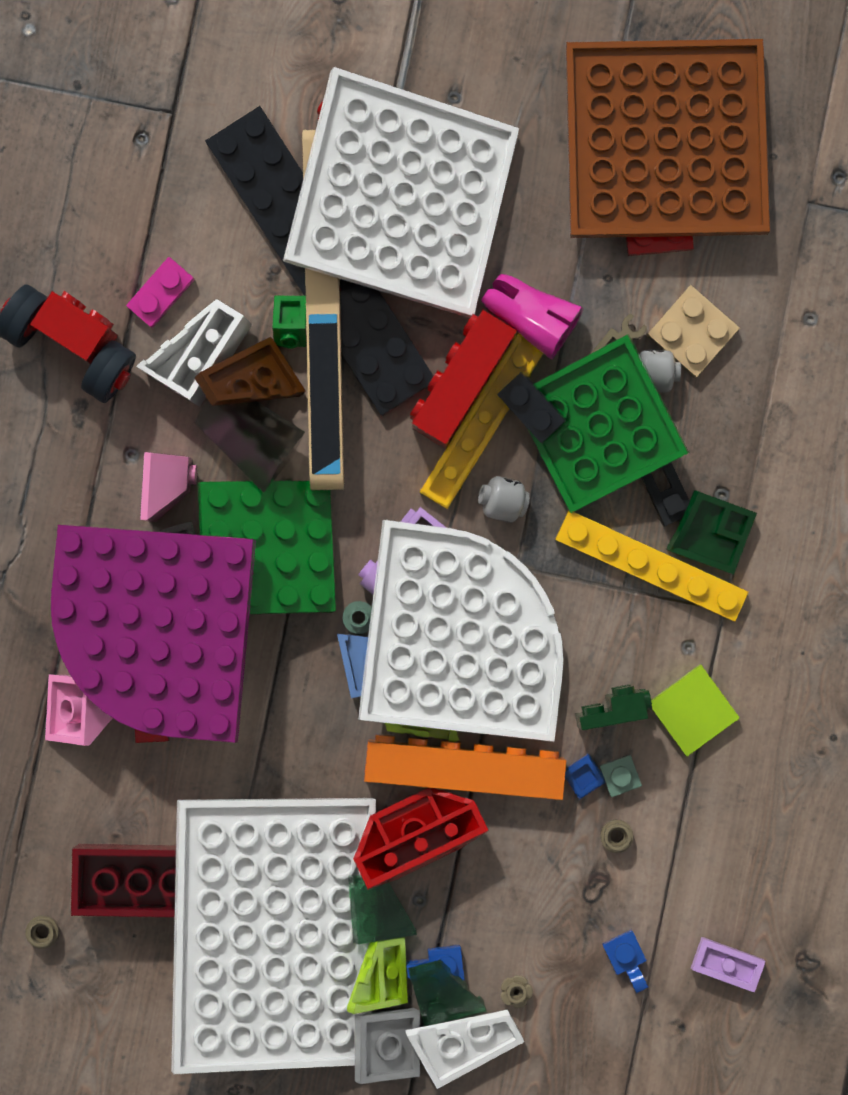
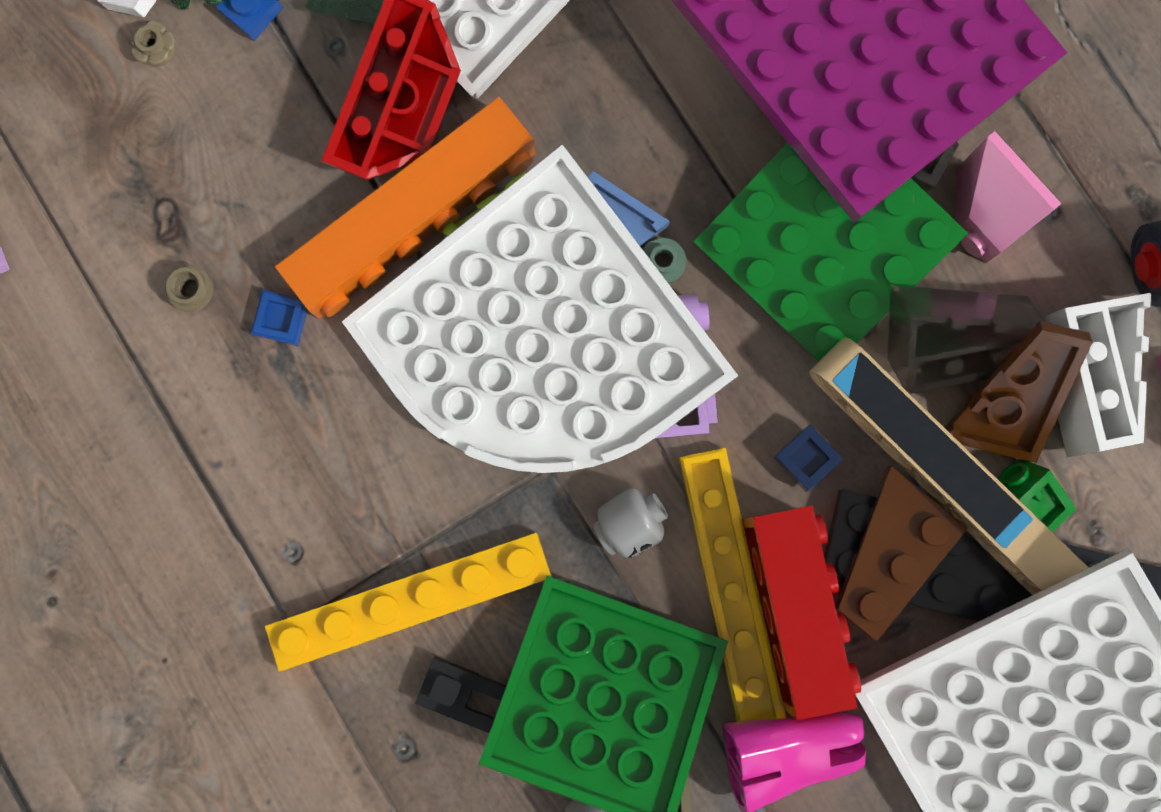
camera: 135 degrees right, 5 degrees down
(383, 447) = (808, 458): none -> dark blue plate
(386, 359) = (897, 554): none -> reddish brown wing
(532, 407) = (695, 650): black plate -> none
(620, 775) = (242, 353): sand green plate -> none
(623, 706) = (295, 420): dark green plate -> none
(626, 956) = (69, 179): blue plate -> none
(693, 710) = (226, 491): lime tile -> none
(712, 532) = (375, 700): dark green plate -> none

